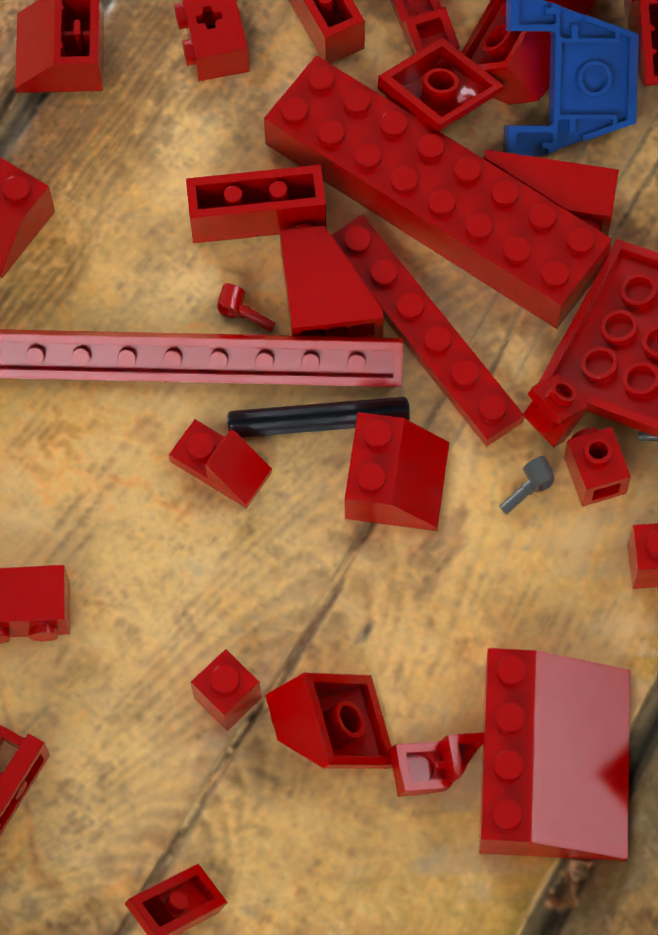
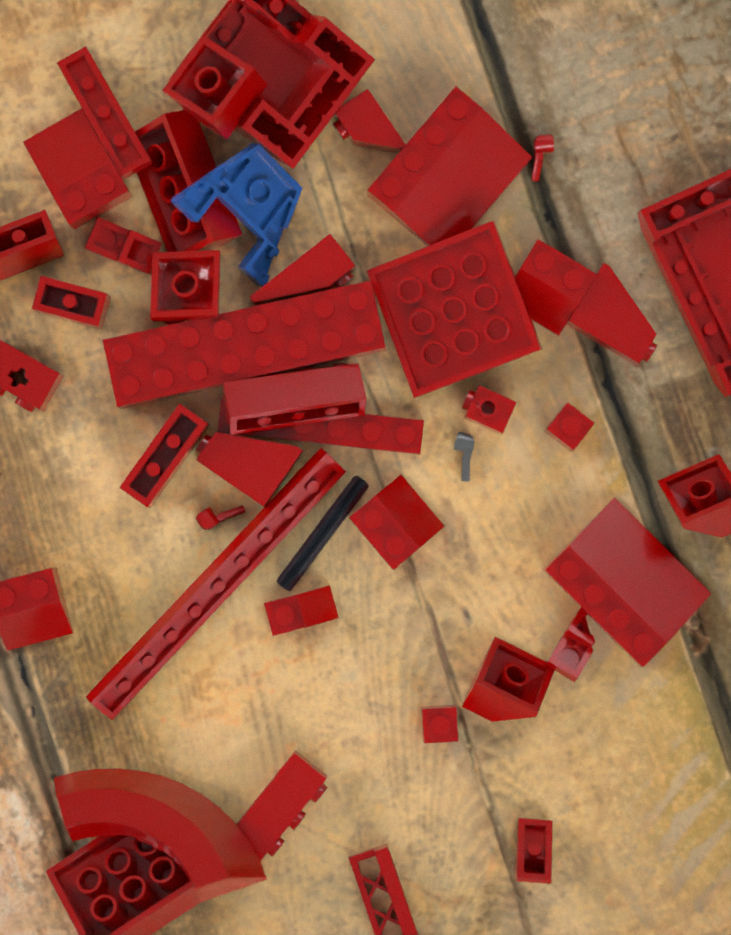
camera: 50 degrees left, 20 degrees up
(426, 269) = (294, 398): none -> red brick
(554, 409) = (439, 403): red bracket -> none

